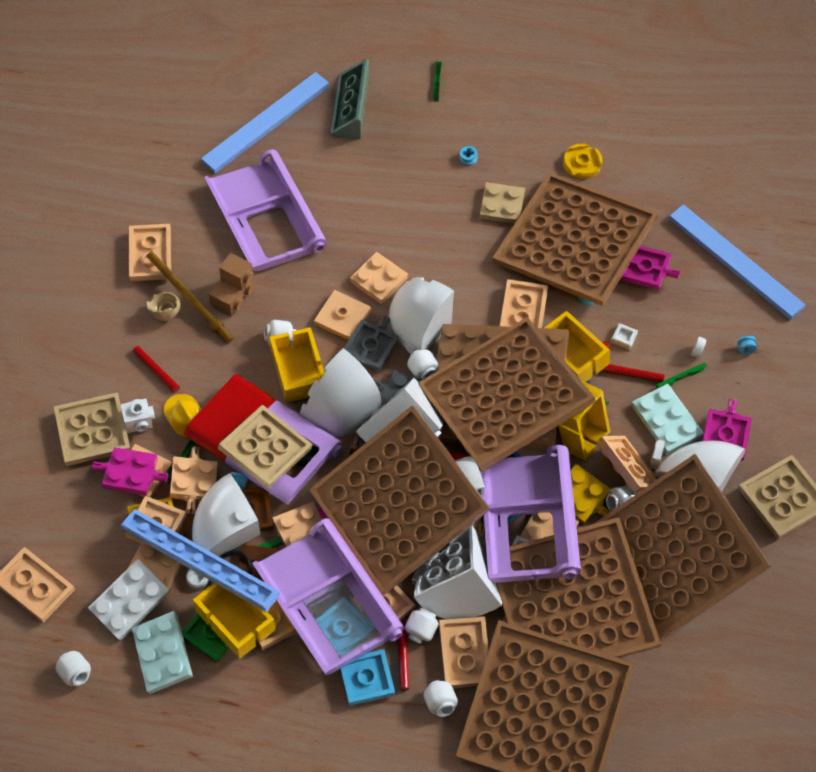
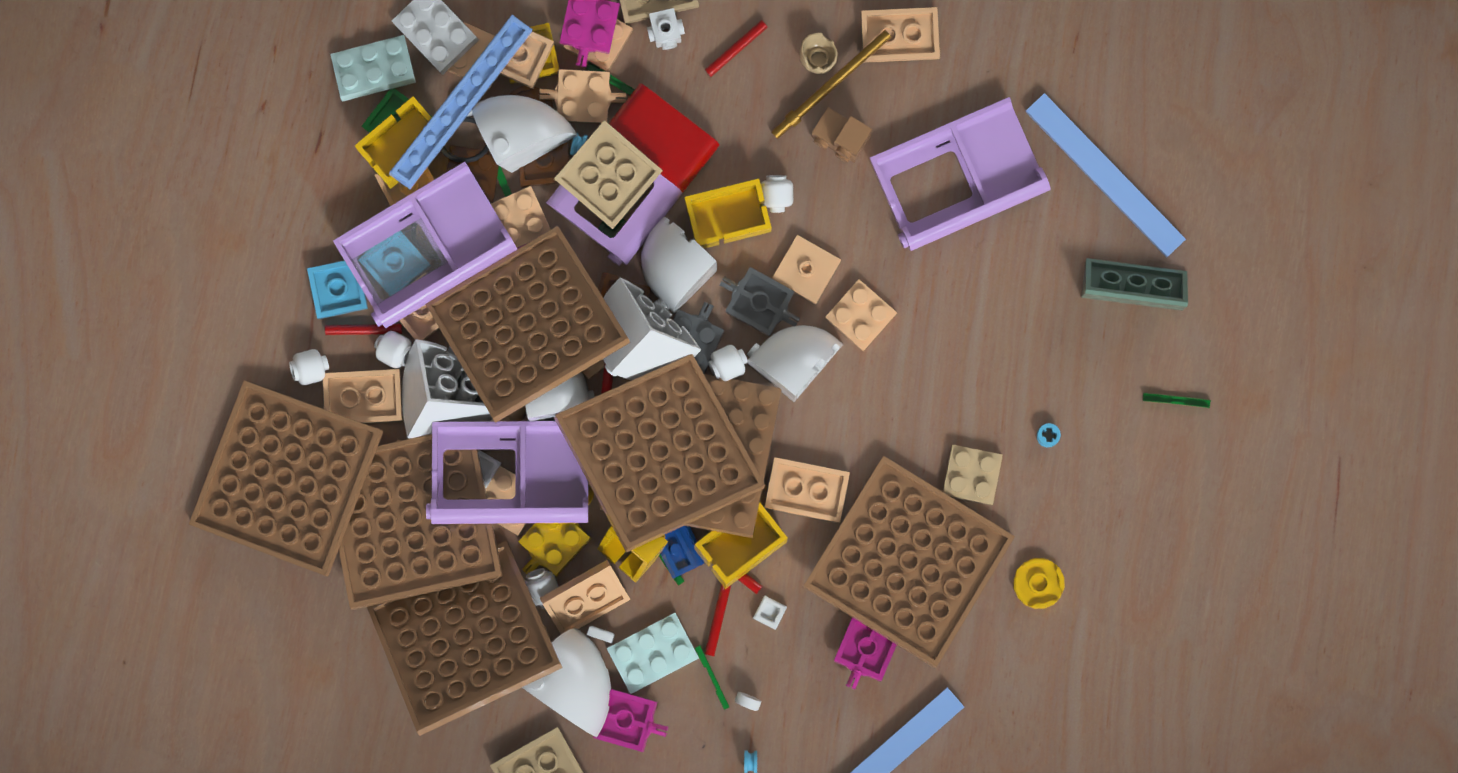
camera: 95 degrees right, 25 degrees up
(180, 412) = (676, 81): yellow piece -> none

